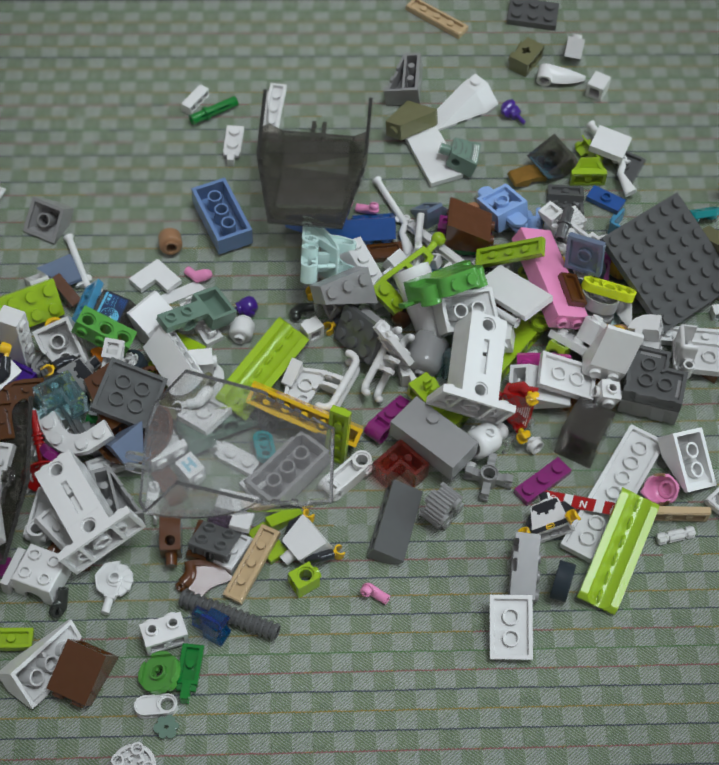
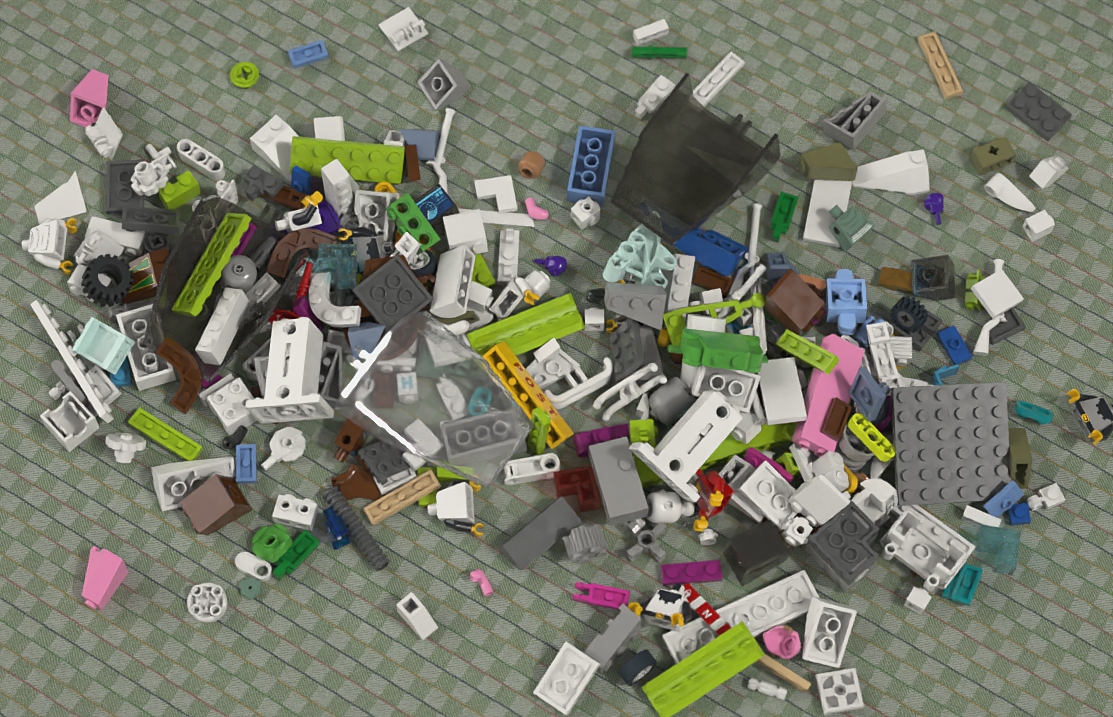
camera: 35 degrees right, 10 degrees up
(86, 619) = (246, 464): none -> medium blue plate
(88, 297) = (424, 183): dark azure plate -> none
(205, 305) = (517, 249): sand green plate -> none
(231, 344) = (511, 296): none -> white torso
(243, 253) = (585, 213): none -> white brick
(300, 586) = (428, 529): lime brick -> none
(340, 656) = (416, 616): none -> white slope
(371, 209) = (729, 232): bright pink arm -> none
(379, 310) = (663, 338): none -> yellow tile
(392, 344) = (640, 375): white hinge -> none
(402, 175) = (783, 215): none -> green hinge
(485, 542) = (602, 595): none -> dark pink hinge
(559, 190) = (909, 314): none -> black wheel
(564, 224) = (880, 352): dark grey axle -> none
(588, 172) = (956, 310): lime slope -> none

